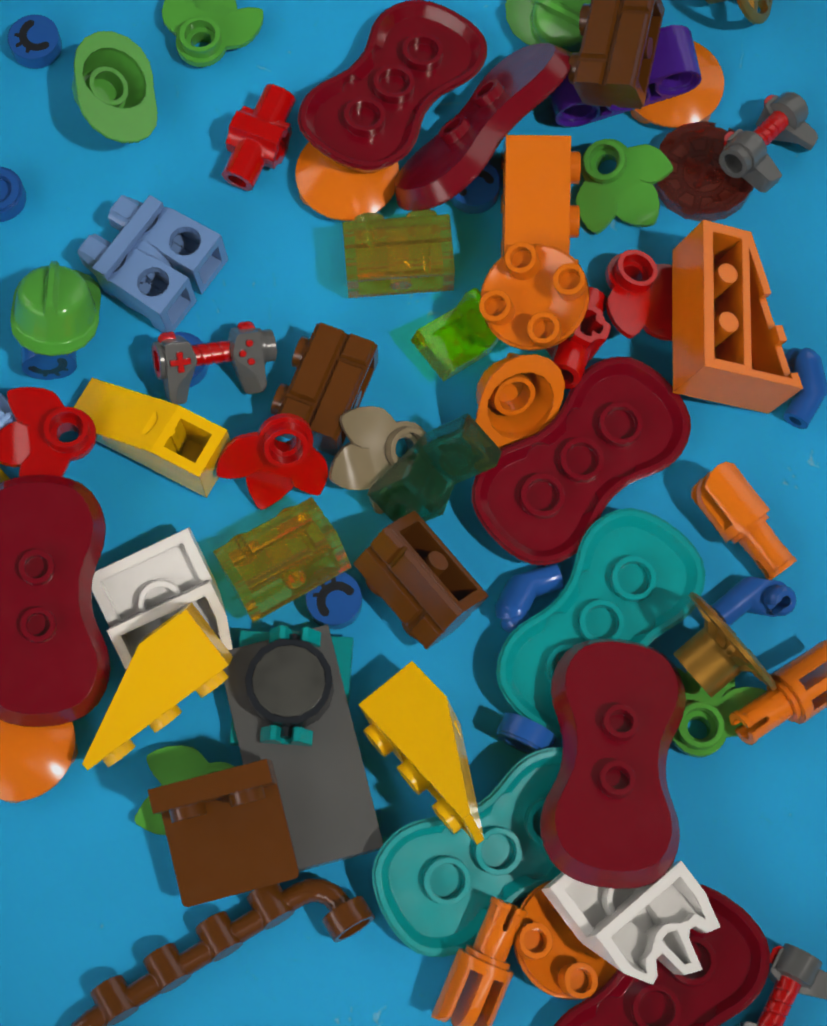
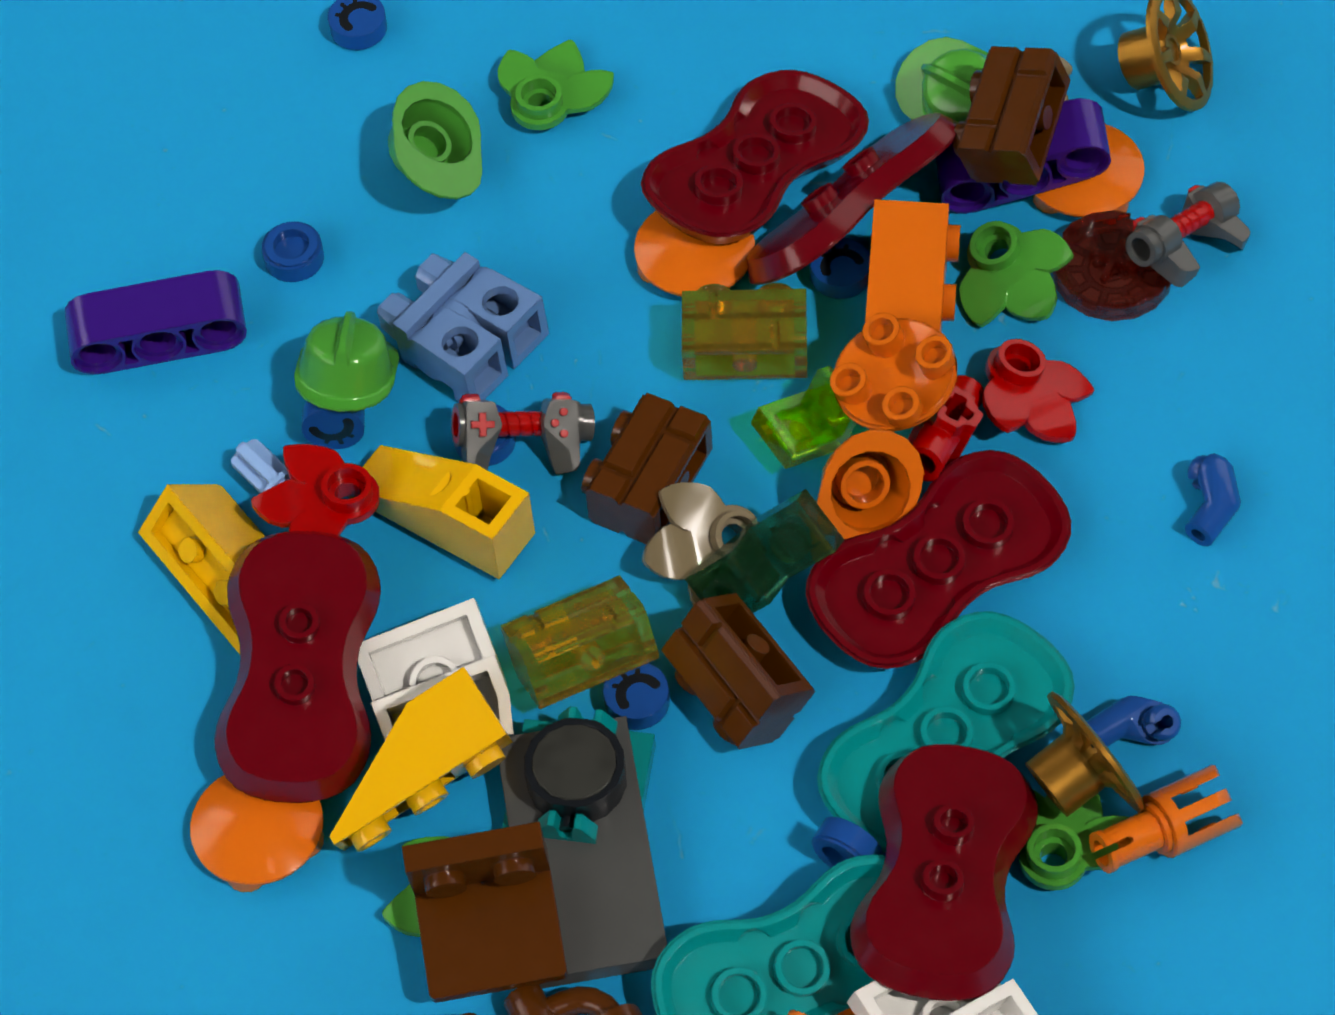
camera: 10 degrees right, 15 degrees down
(34, 41) = (350, 95): blue tile -> none
(258, 137) = (595, 204): red axle -> none
(273, 465) = (579, 544): red plate -> none
(424, 733) = (724, 834): yellow slope -> none
(521, 591) = (862, 694): blue arm -> none
(723, 324) = (1118, 423): orange wedge -> none
(741, 517) = (1123, 630): orange arm -> none

